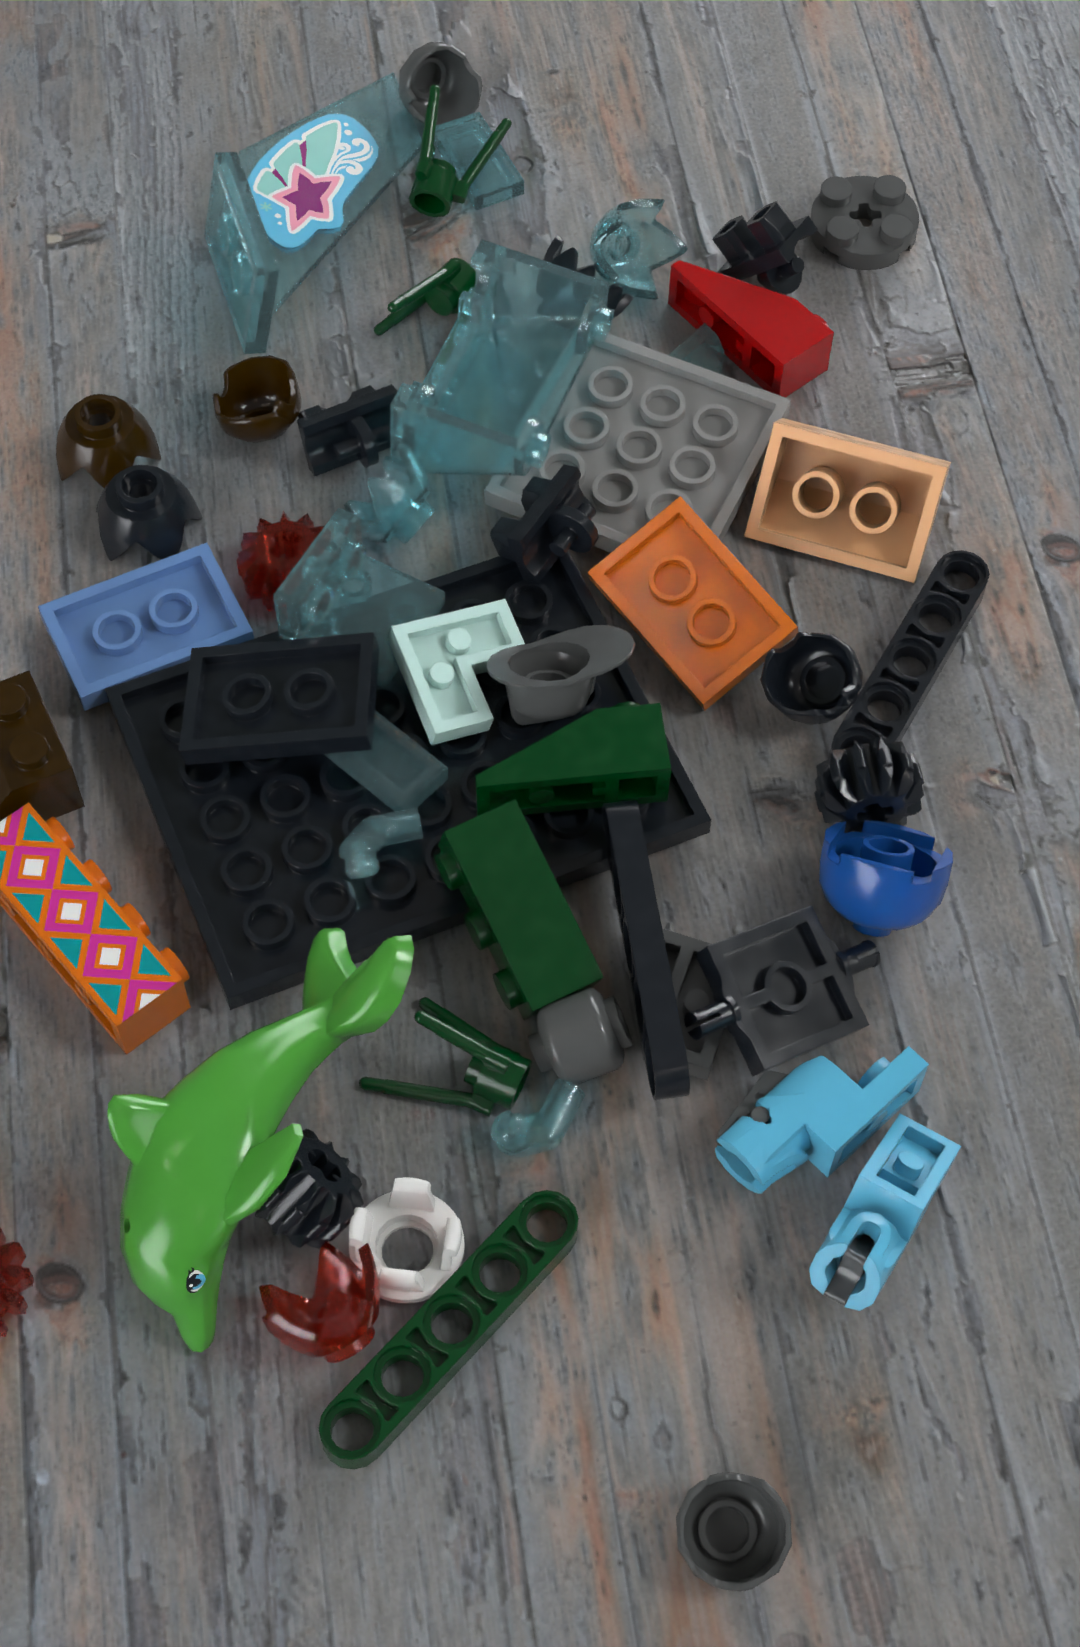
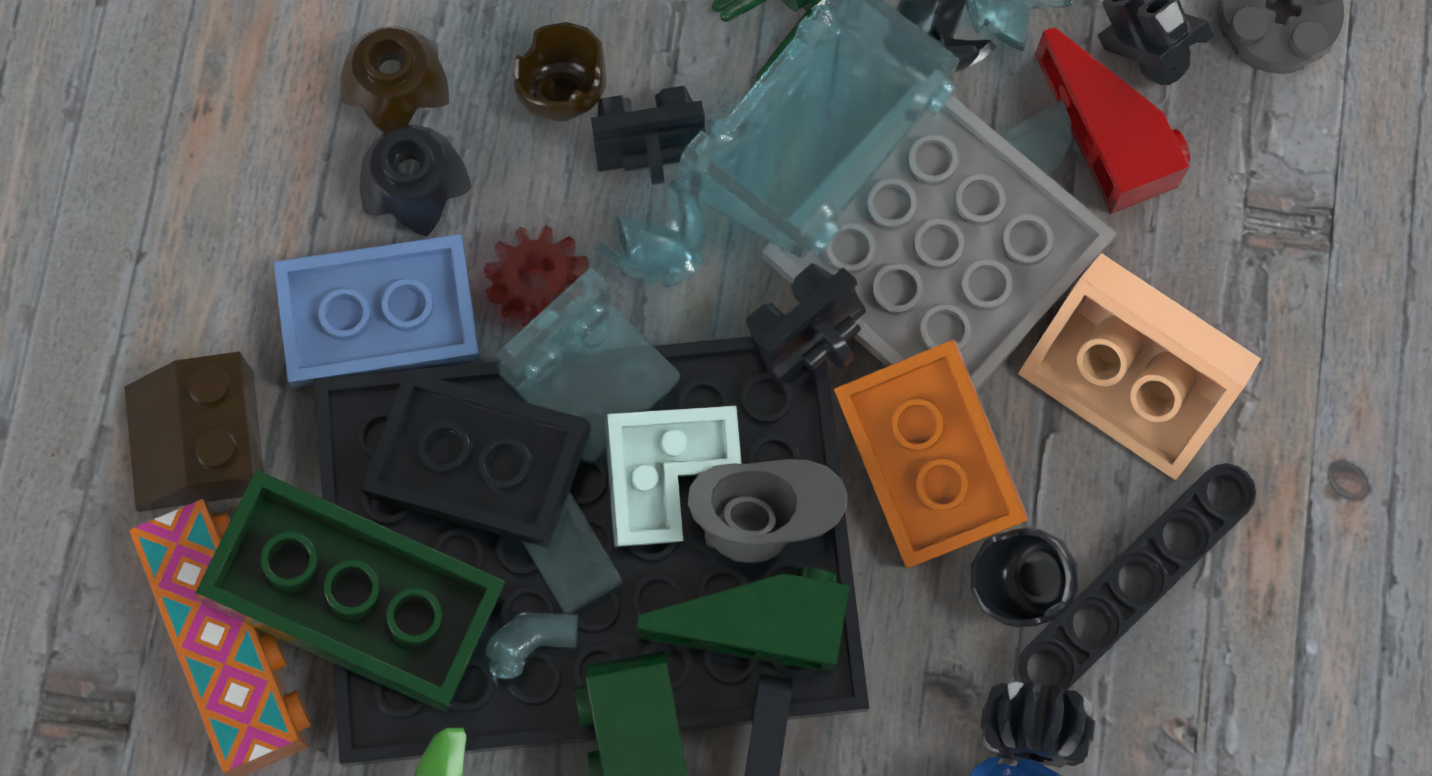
camera: 15 degrees right, 15 degrees up
(195, 826) = (350, 591): none -> dark green brick

